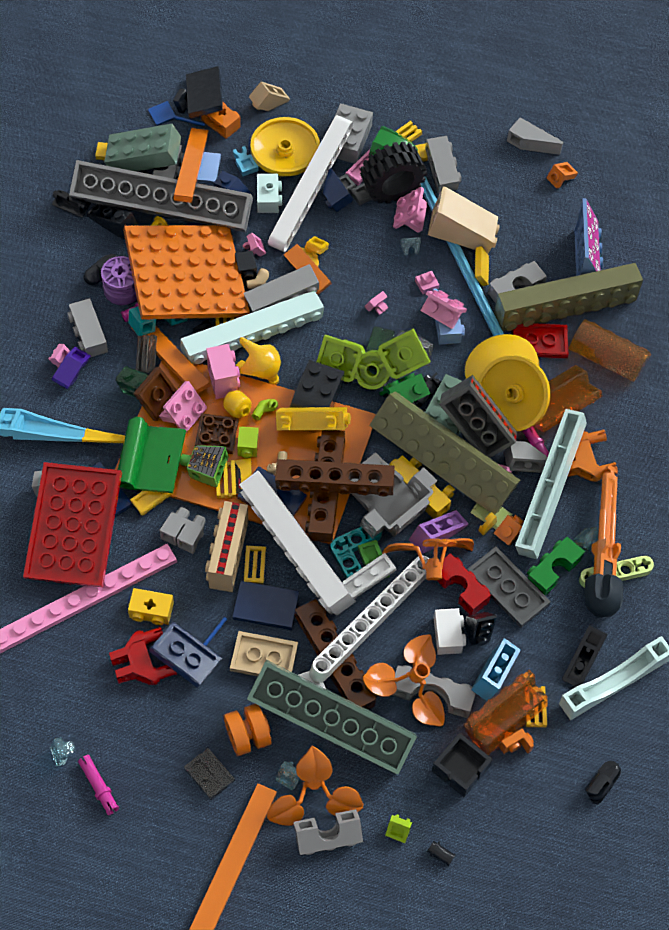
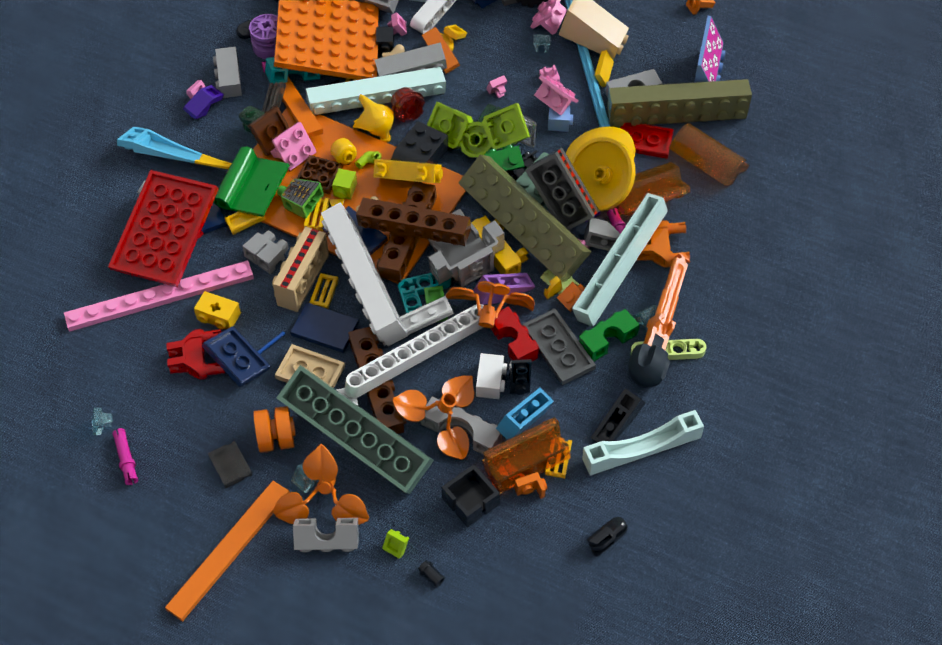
camera: 15 degrees right, 5 degrees down
(222, 370) = (336, 118): bright pink brick -> none
(290, 339) = (407, 104): none -> clear red cone

